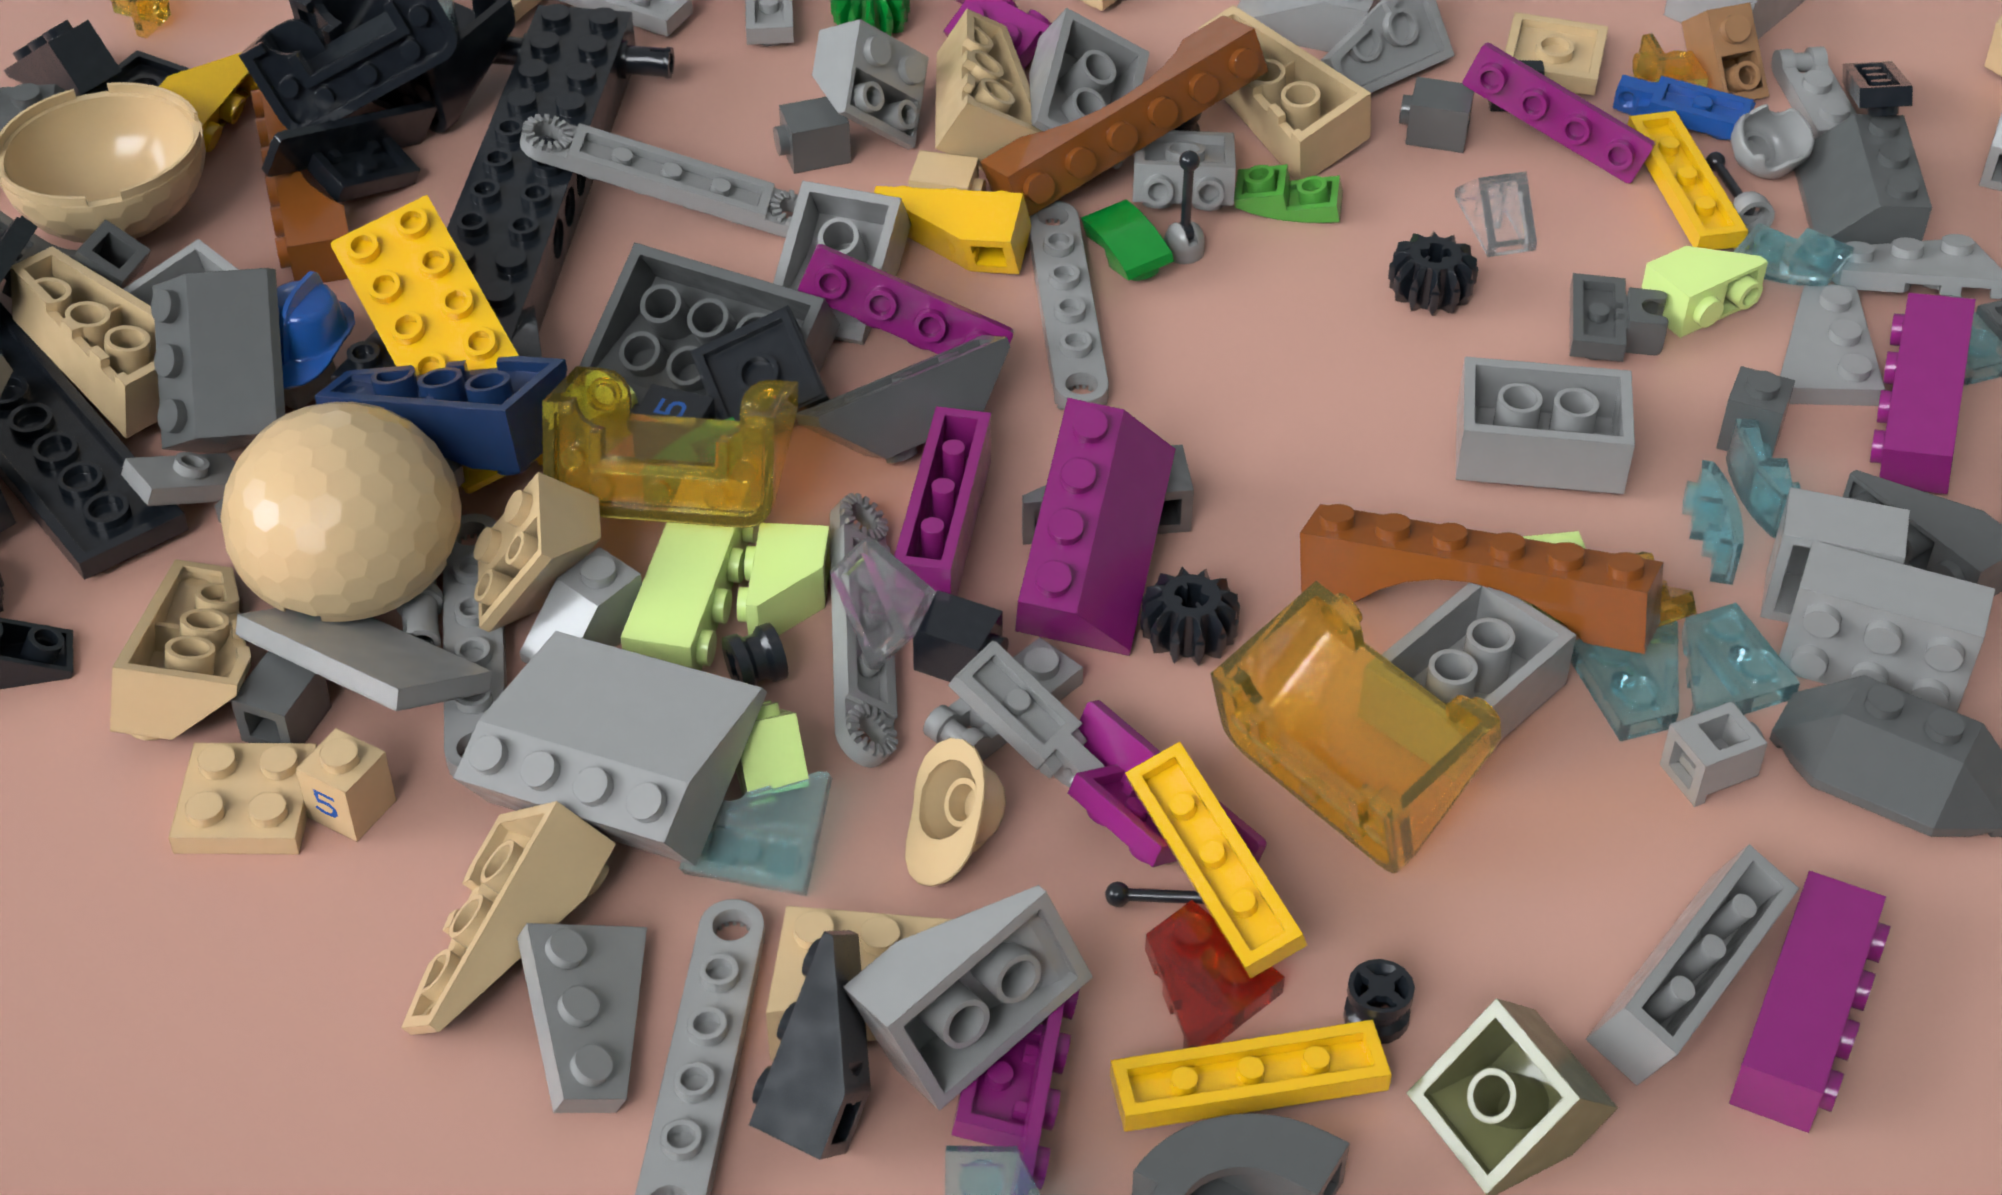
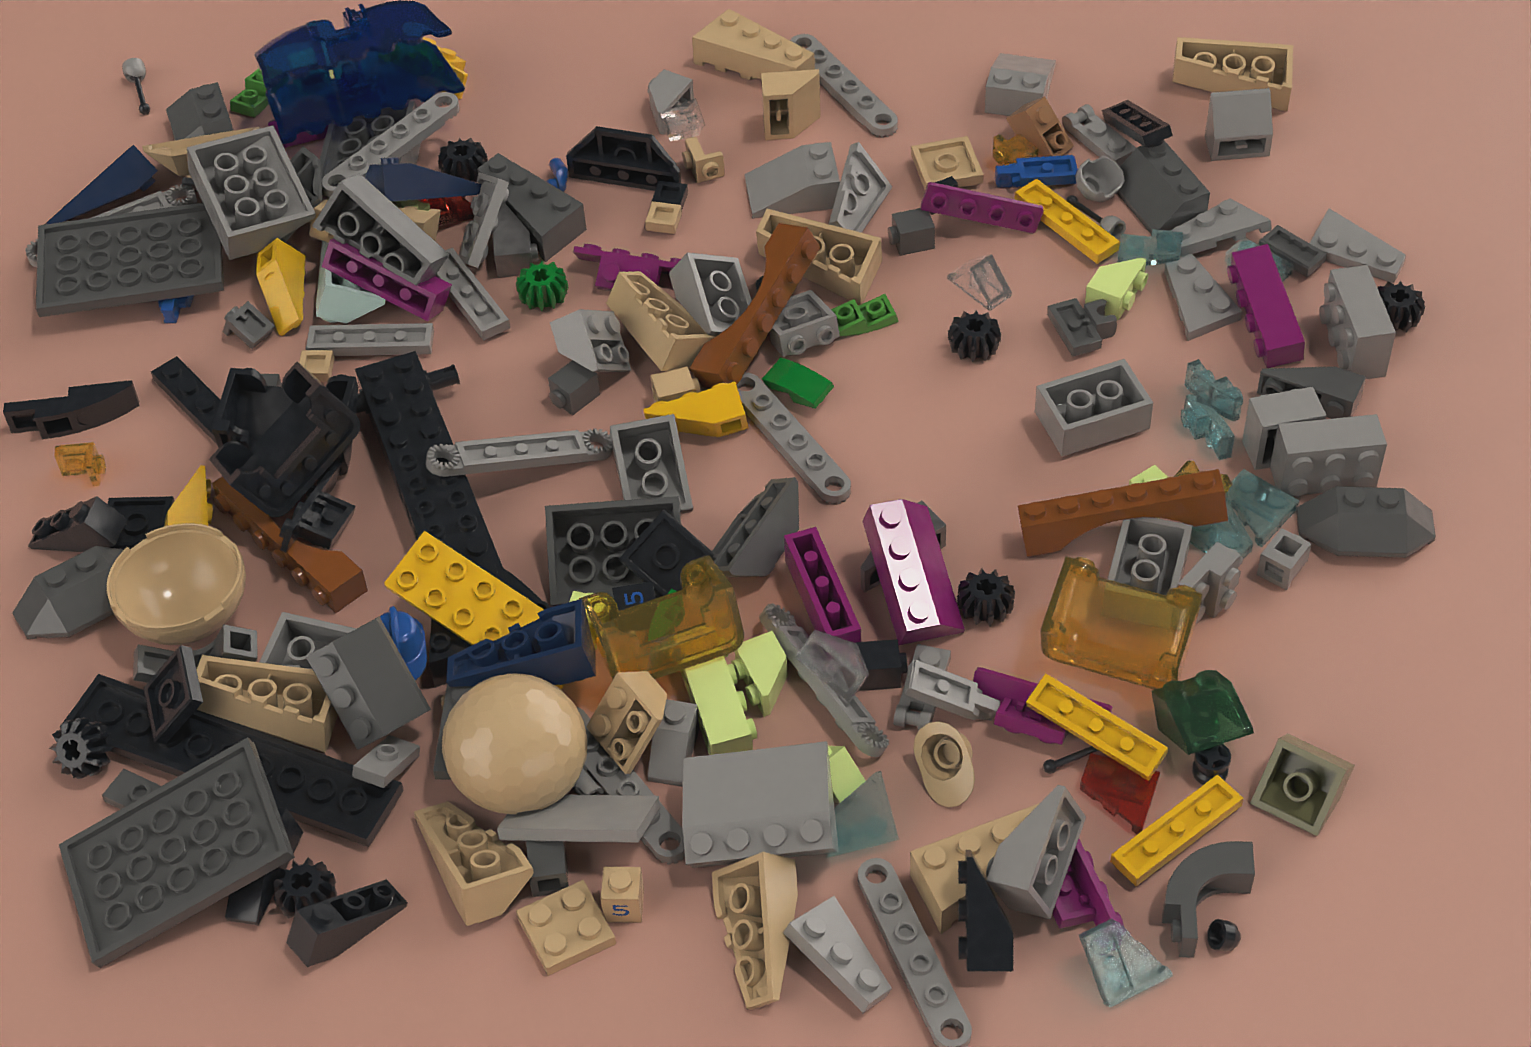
camera: 25 degrees left, 5 degrees up
(755, 656) = (780, 723): black wheel -> none
(893, 303) = (715, 481): magenta bracket -> none
(1186, 230) = (826, 365): hinge -> none
(1405, 910) = (1200, 712): none -> clear green slope
(1551, 733) = (1215, 579): none -> light grey plate
(1692, 965) = (1345, 676): light grey brick -> none
(1758, 397) = (1188, 347): dark grey brick -> none
(1809, 1003) = (1403, 669): magenta brick -> none

